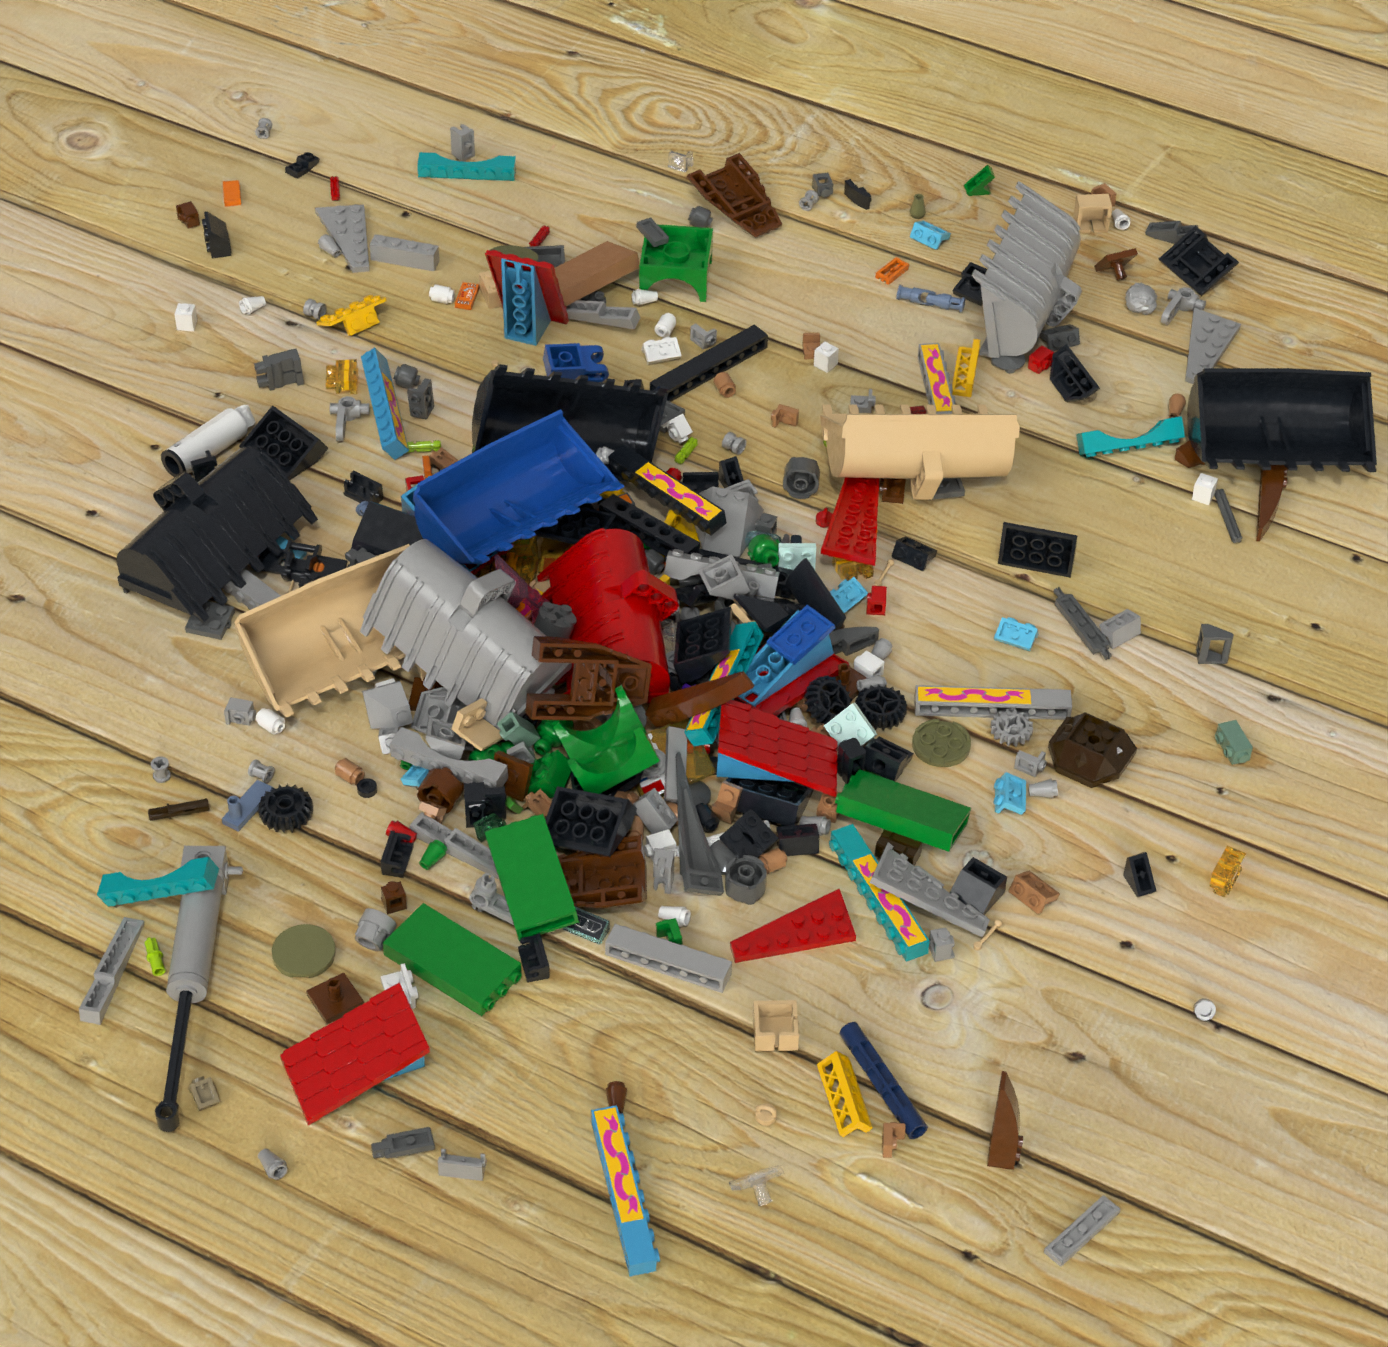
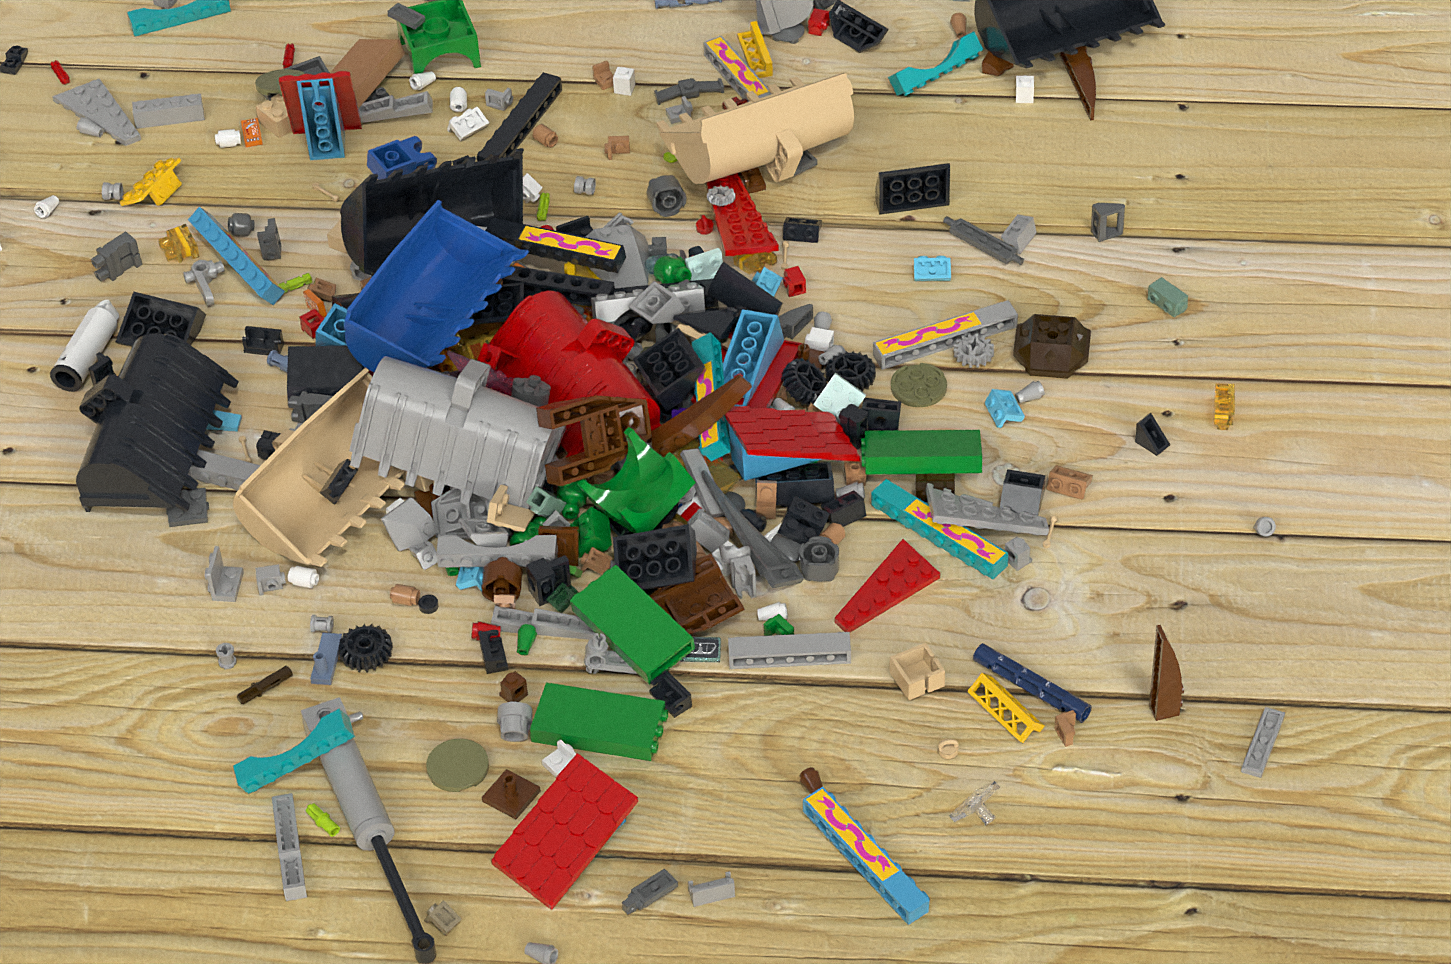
camera: 20 degrees left, 0 degrees up
(197, 697) = (222, 580): none -> light grey bracket
(298, 569) = (248, 432): black piece -> none
(345, 643) = (338, 481): none -> black hinge
(544, 570) = (496, 351): none -> red piece
(663, 842) = (732, 552): none -> light grey hair
(730, 472) = (598, 212): black slope -> none
(800, 634) = (757, 330): blue tile -> none
(843, 496) = (721, 195): none -> light grey gear
(883, 384) = (688, 88): none -> dark grey plate
(1030, 764) = (1006, 375): light grey bracket -> none
(1228, 515) = (1059, 109): dark grey axle -> none

